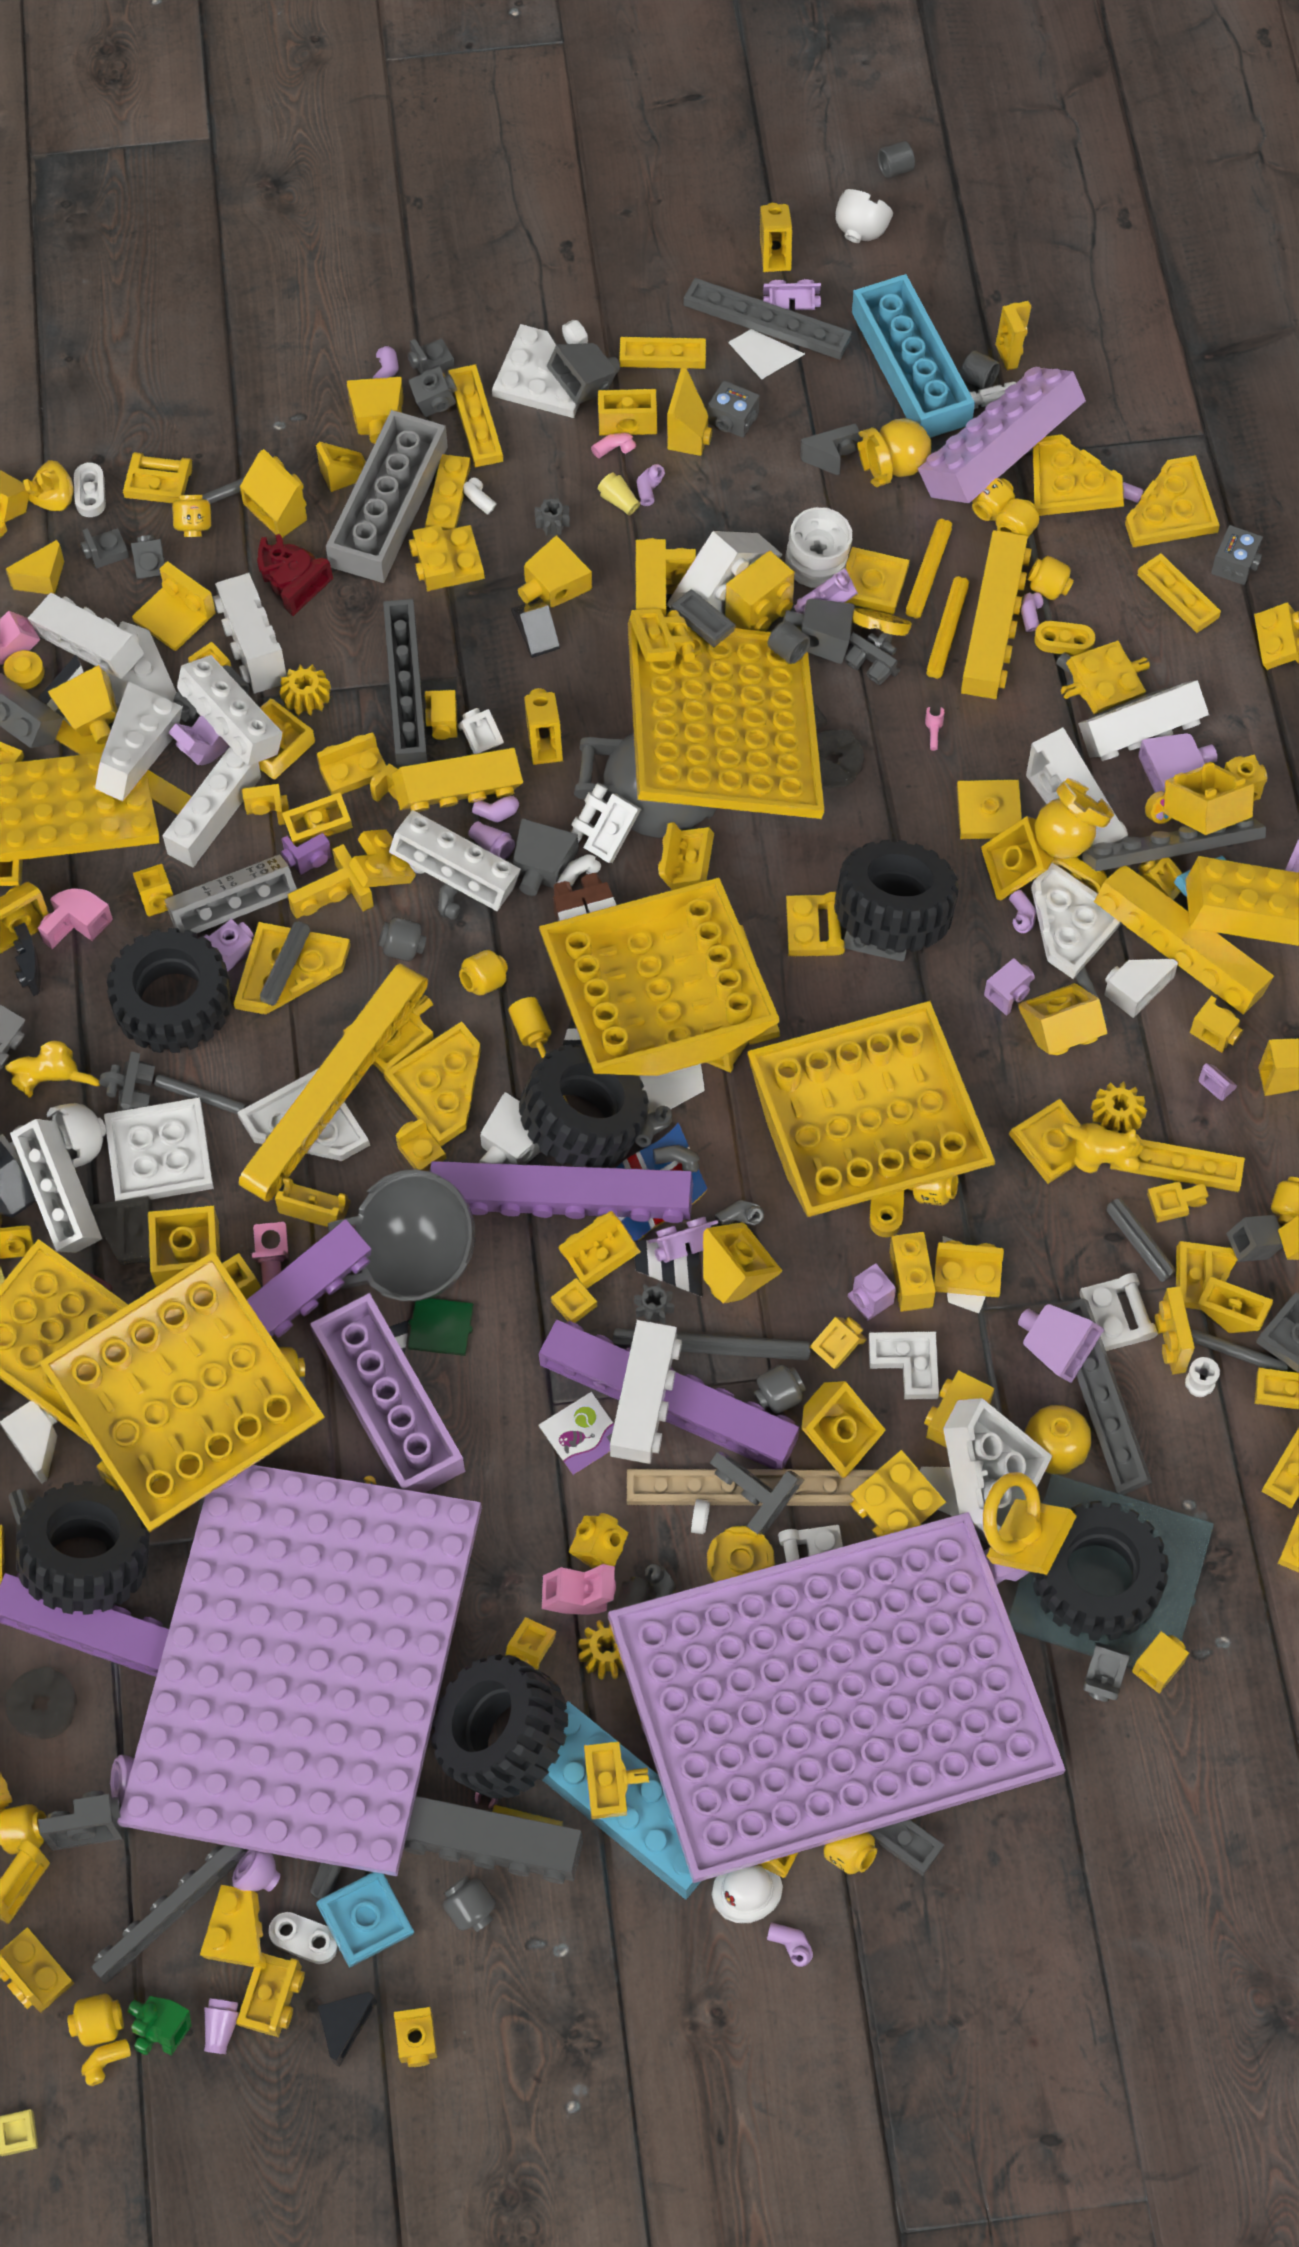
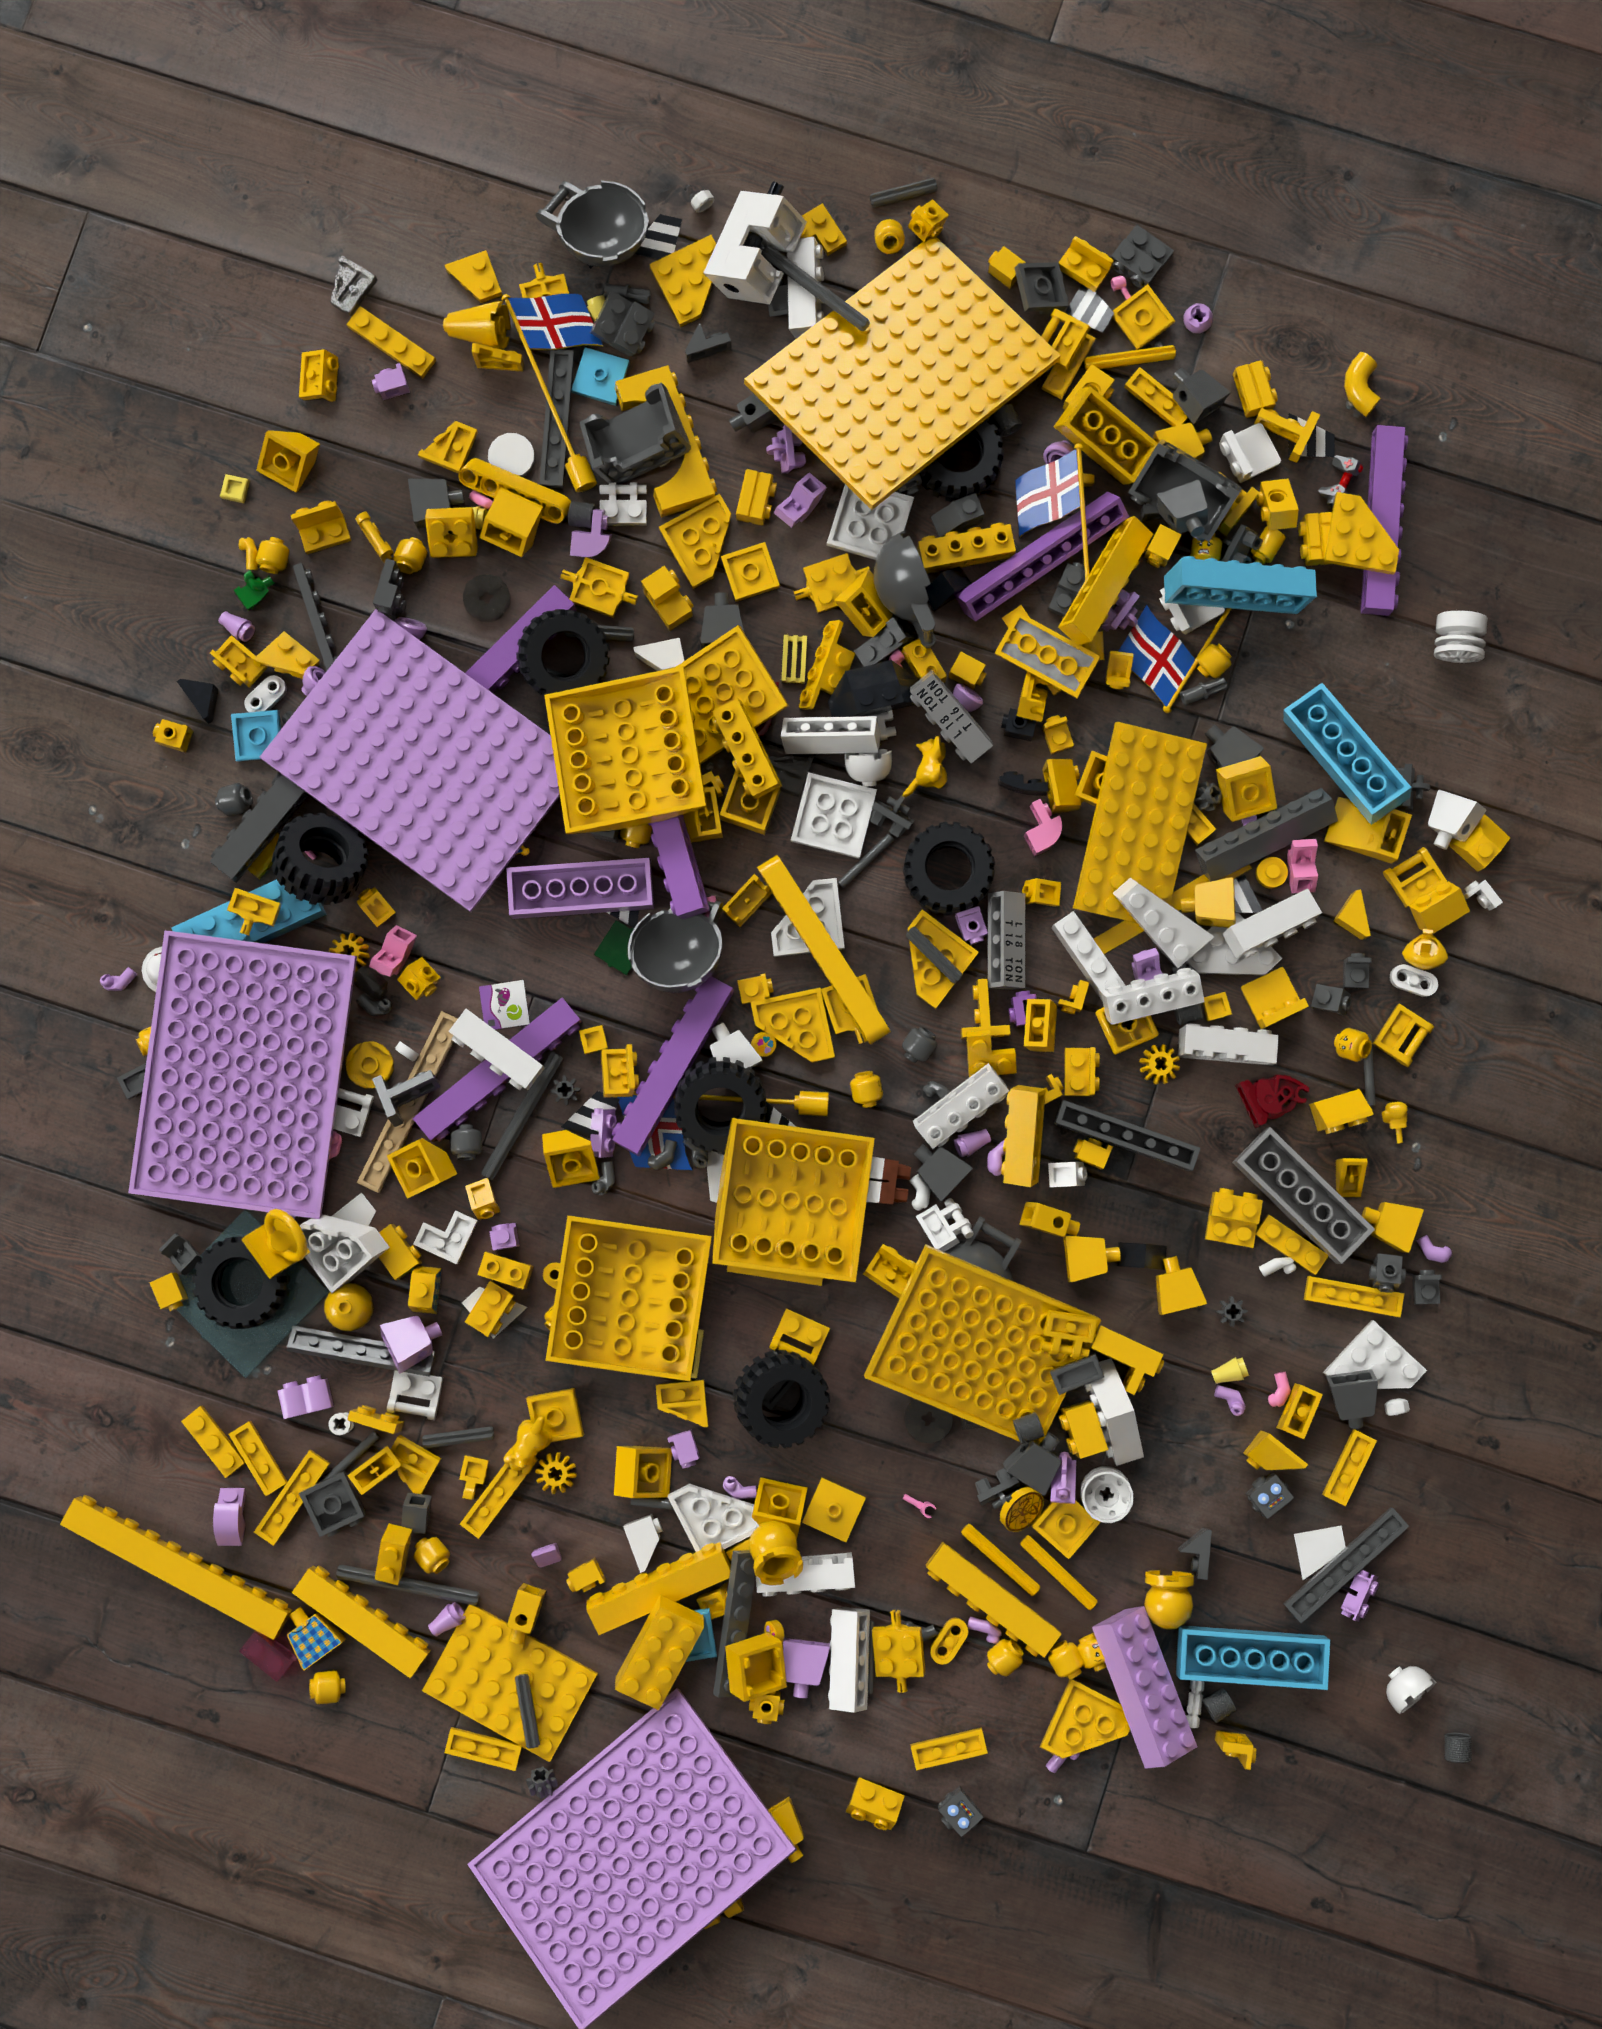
camera: 115 degrees right, 20 degrees up
(116, 1261) = (746, 748): none -> yellow brick
(248, 449) = (1396, 1115): none -> yellow piece
(270, 1258) = (720, 856): bright pink bracket -> none
(482, 1106) = (763, 1044): none -> yellow tile
(567, 672) = (1087, 1257): none -> yellow torso
(776, 226) = (1421, 1610): yellow torso -> none
(896, 1497) = (355, 1179): yellow plate -> none
(957, 1011) = (684, 1400): none -> yellow wing
(988, 1350) = (424, 1289): none -> yellow torso
(1173, 506) = (1027, 1788): yellow plate -> none
(1196, 1434) = (305, 1398): none -> lavender brick

